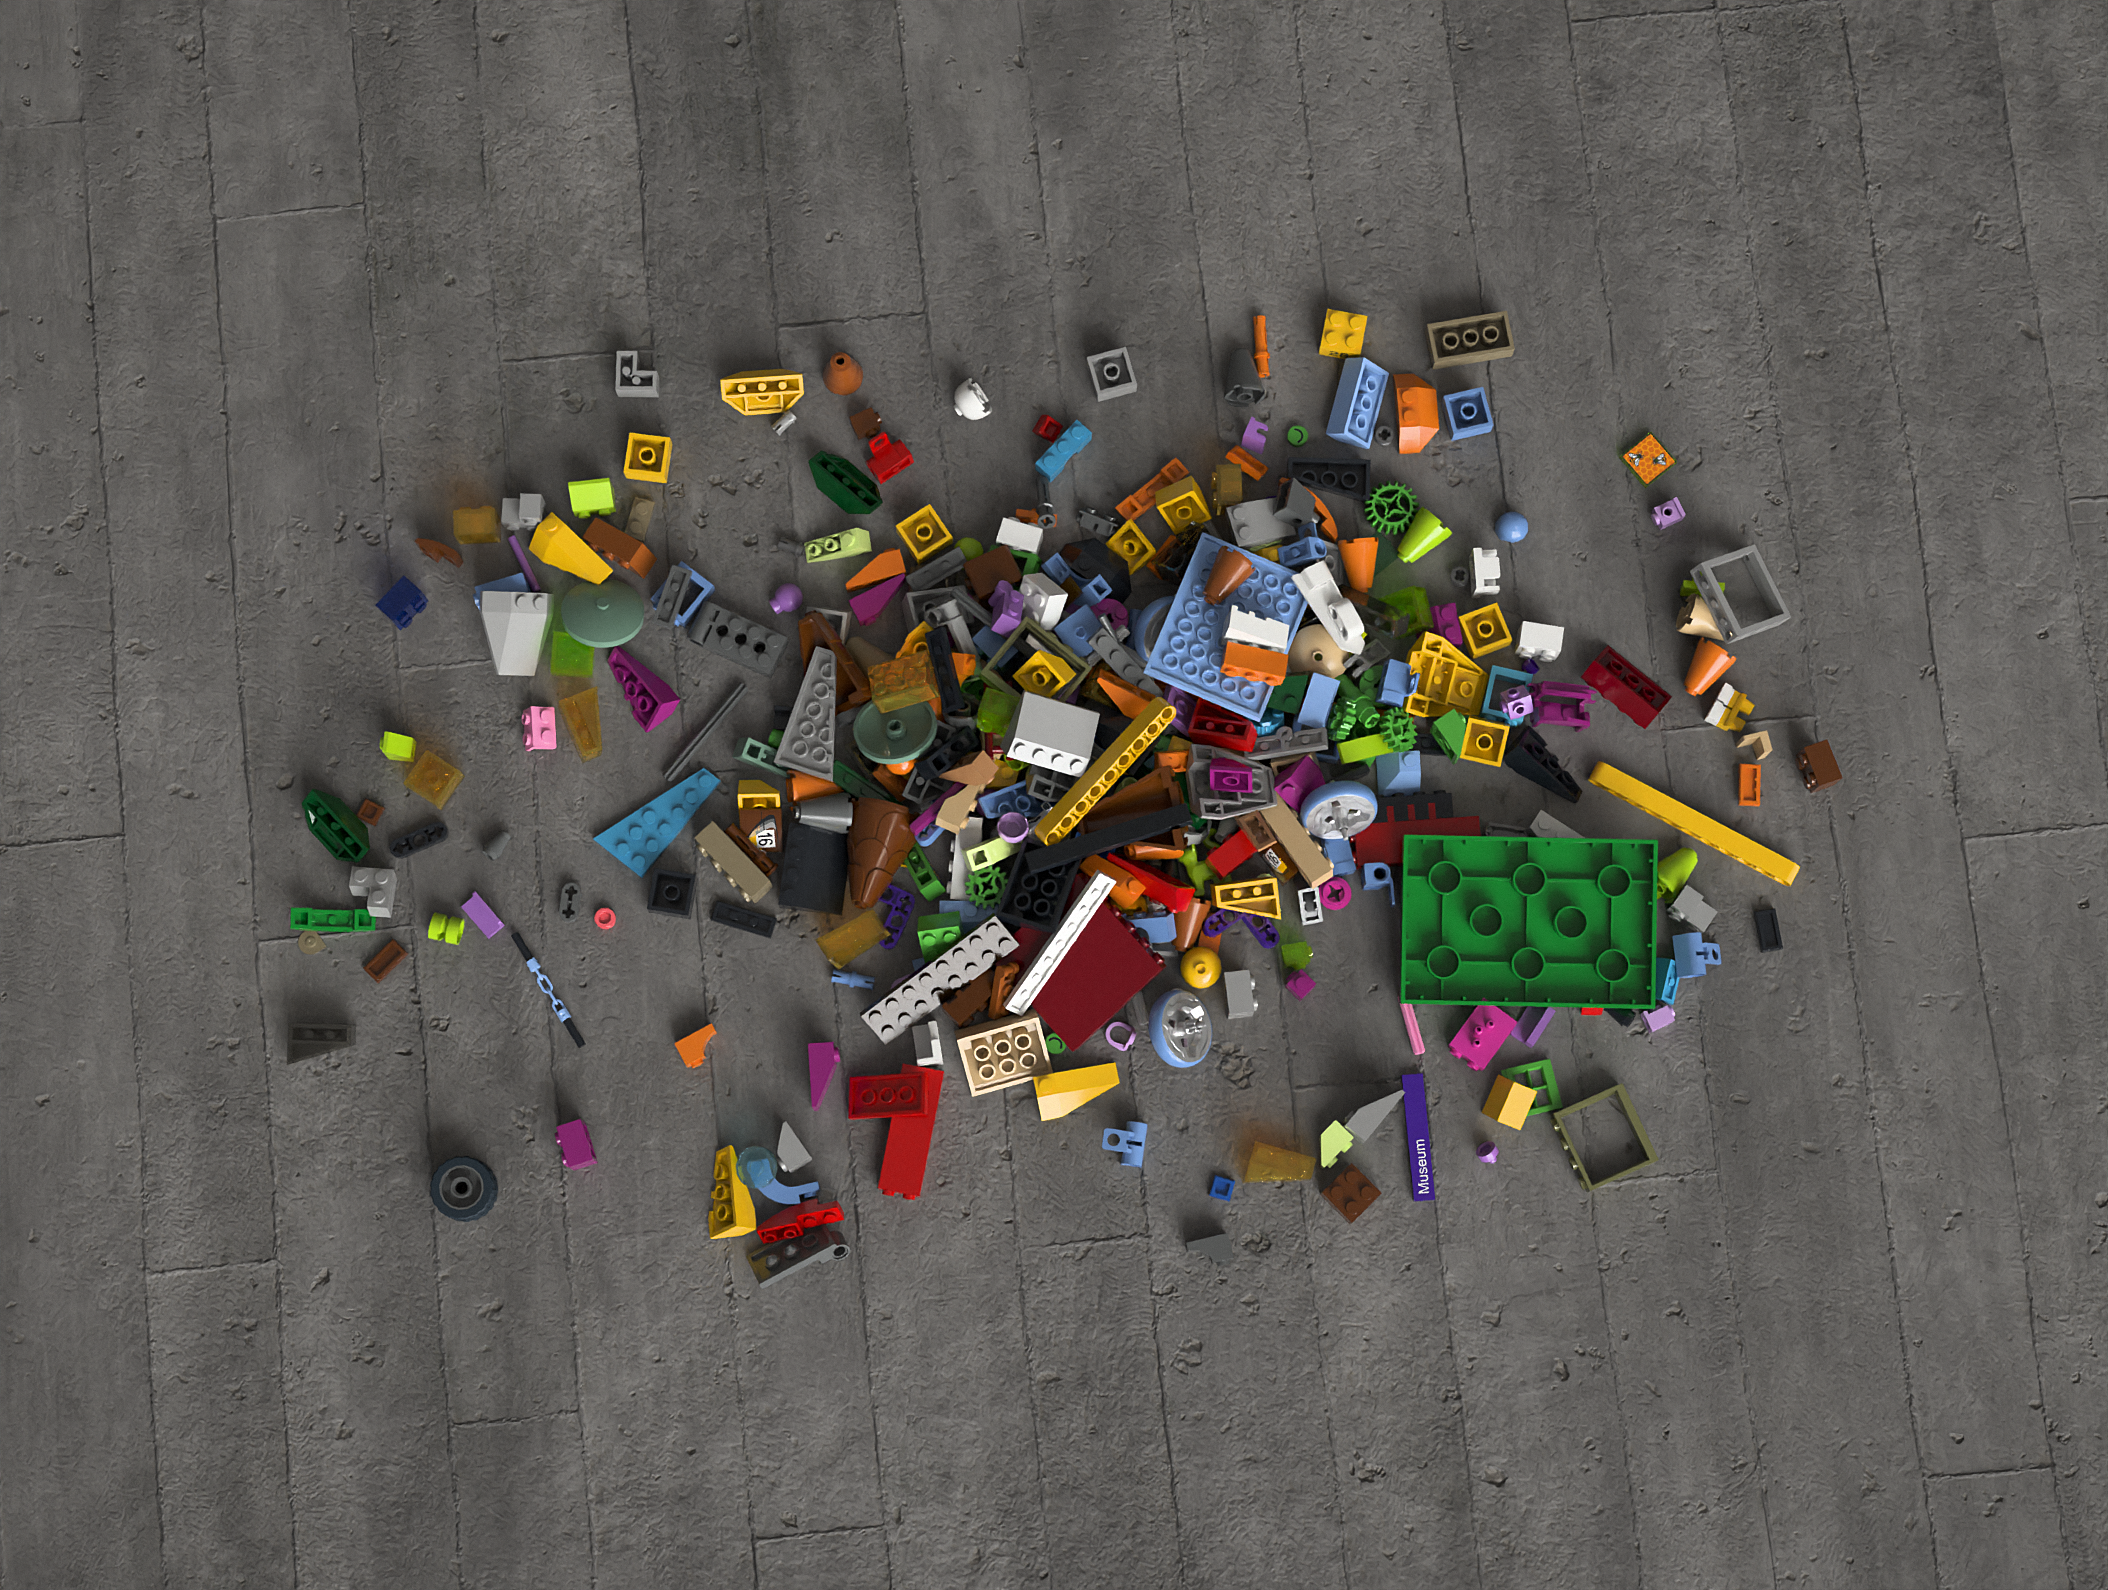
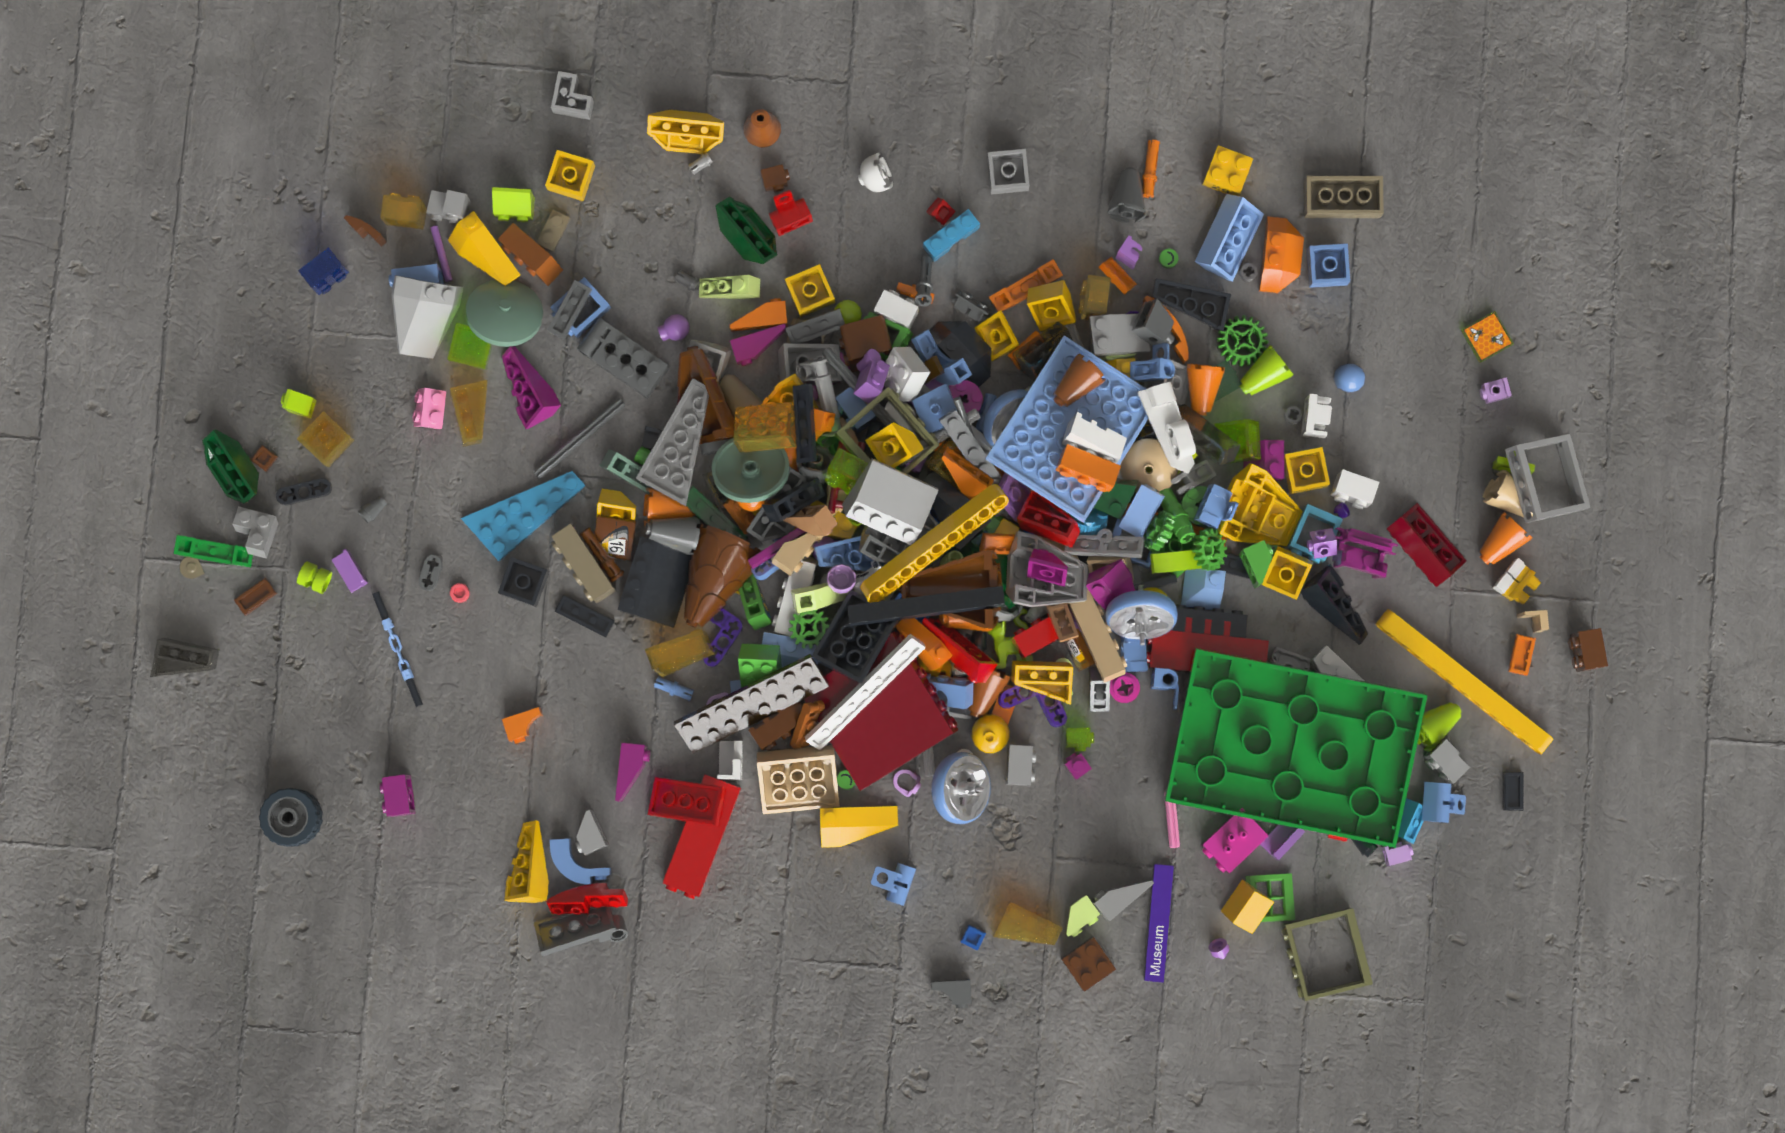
camera: 10 degrees right, 5 degrees up
(756, 1167) = (556, 845): clear light blue tile -> none

